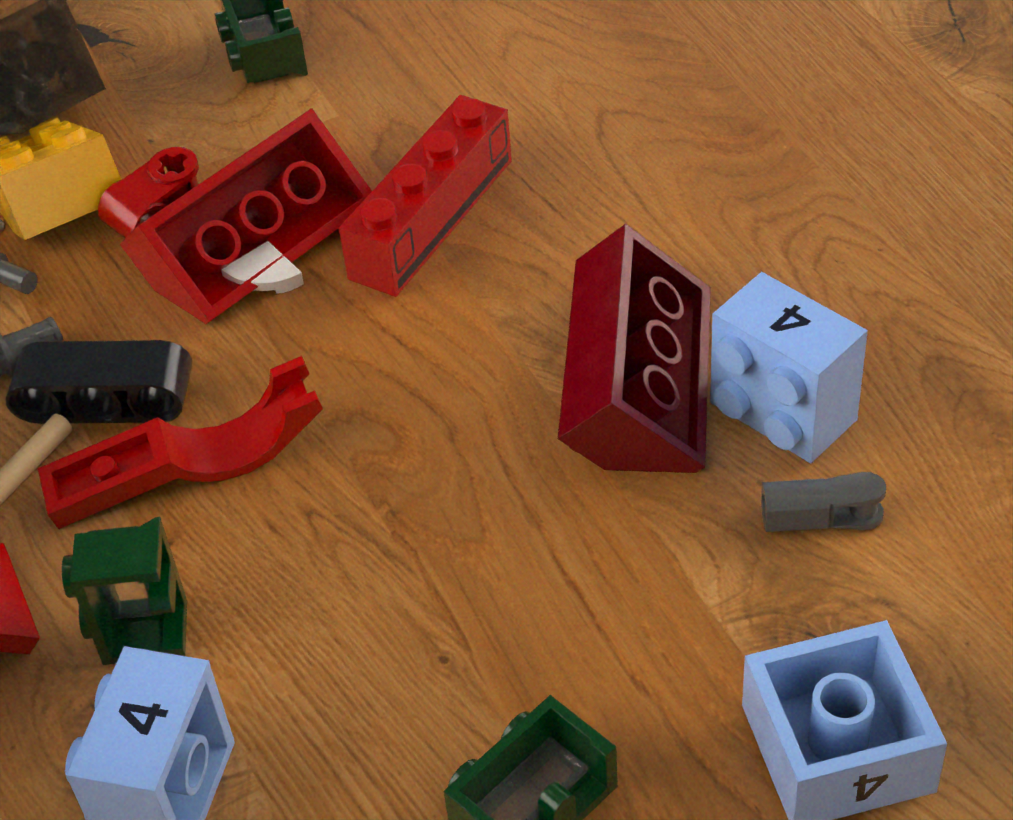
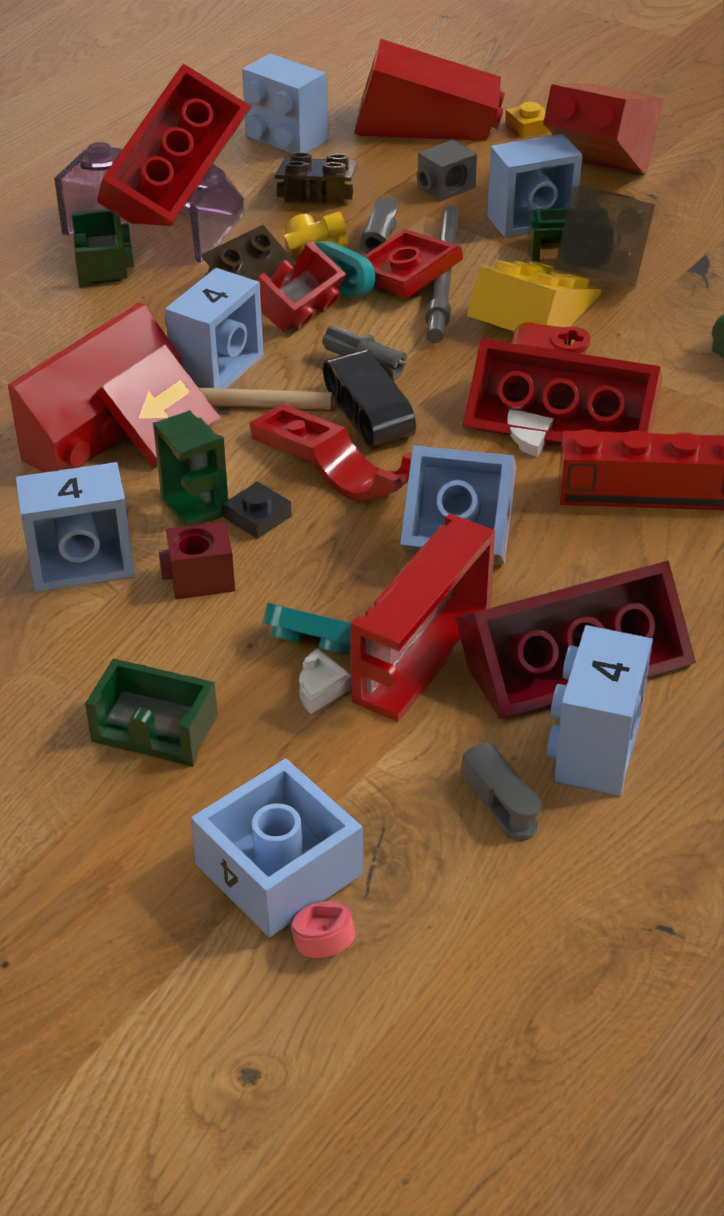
camera: 60 degrees right, 5 degrees down
(212, 566) = (257, 509): none -> black plate
(278, 627) = (198, 560): none -> dark red brick
(398, 360) = (462, 484): none -> light blue brick
(495, 562) = (292, 623): none -> teal plate
(555, 456) = (414, 621): none -> red door
(555, 607) = (322, 681): none -> white tile
(966, 730) = (323, 929): none -> coral tile

